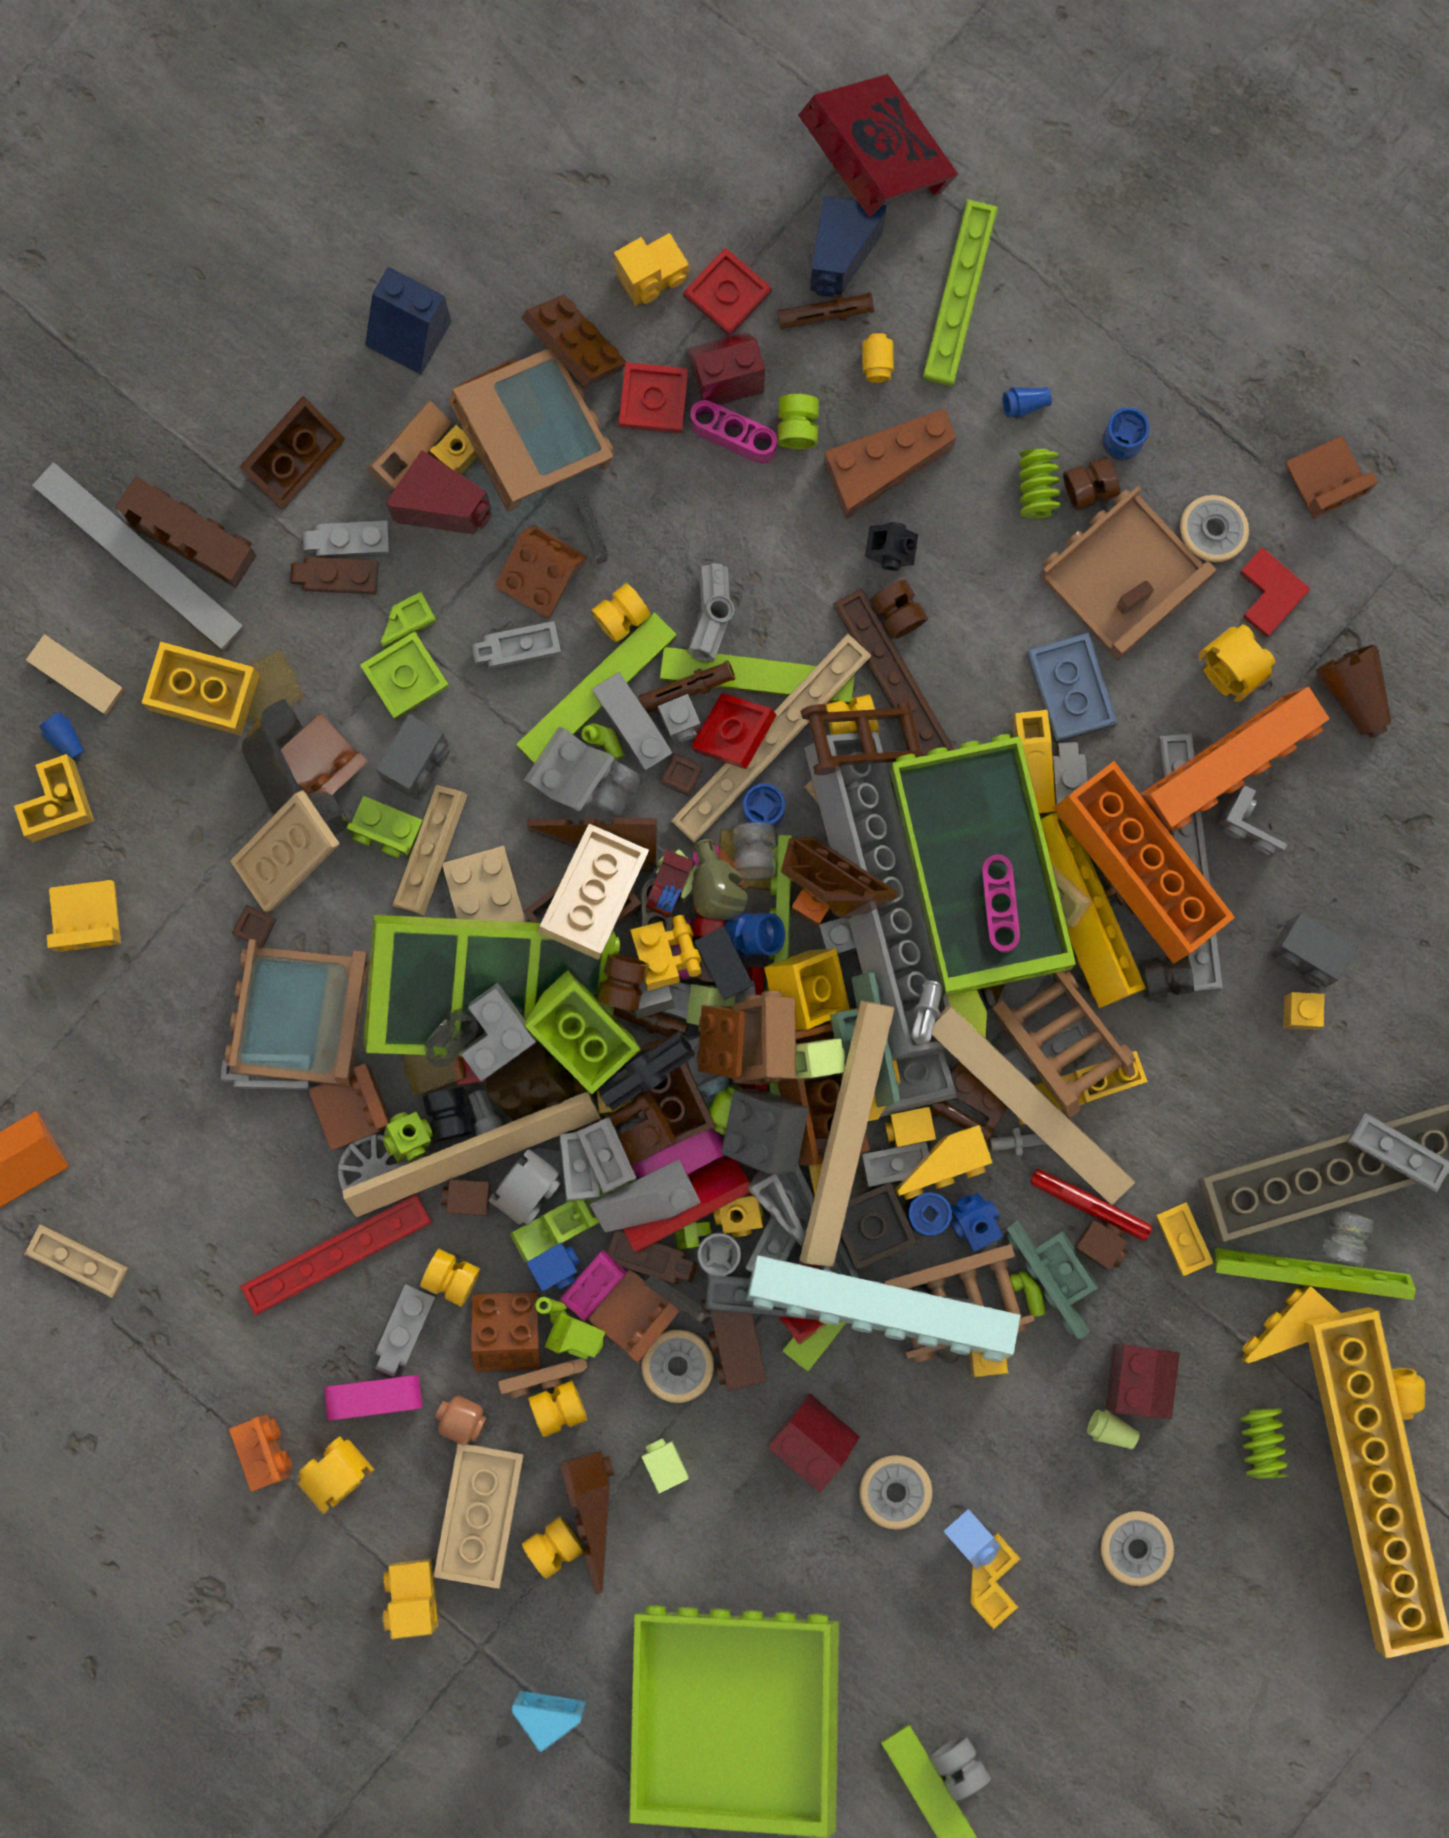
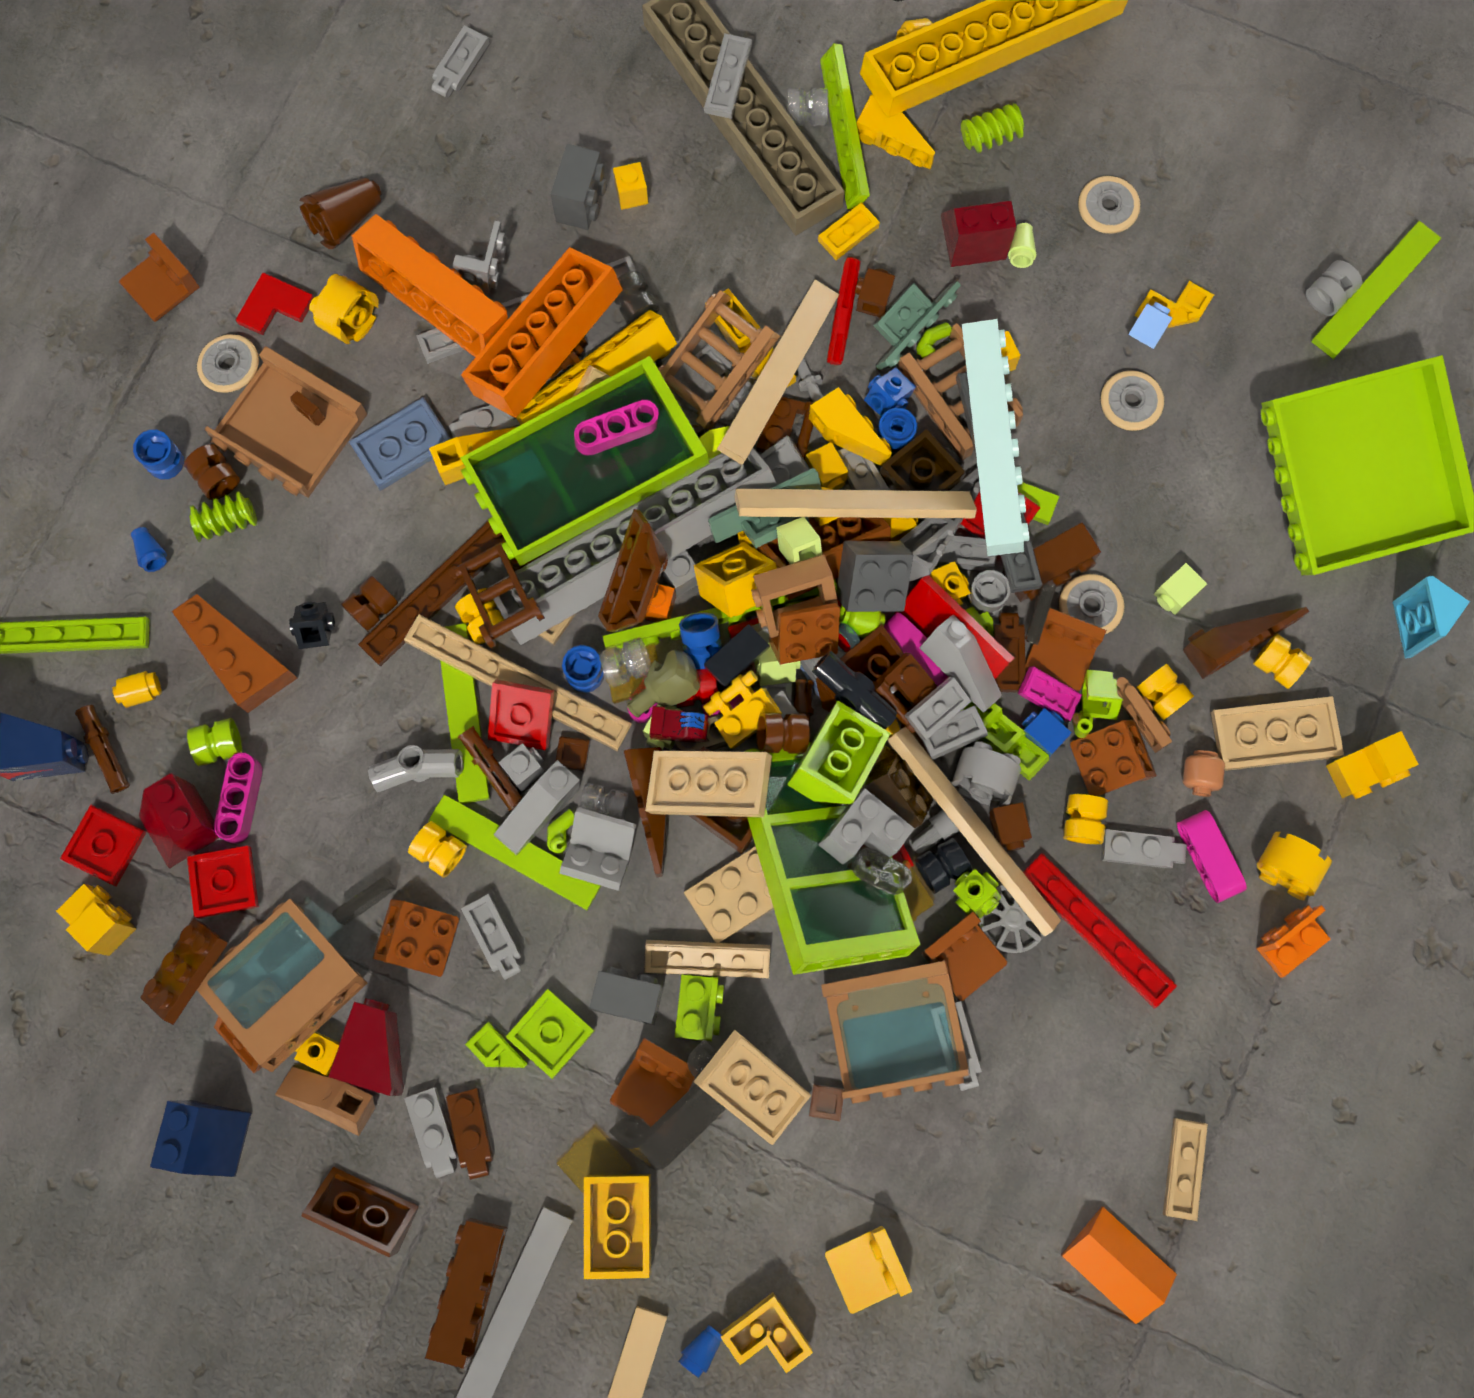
camera: 105 degrees left, 5 degrees down
(814, 1442) = (1121, 470): dark red slope -> none
(926, 1012) = (730, 464): light grey axle -> none

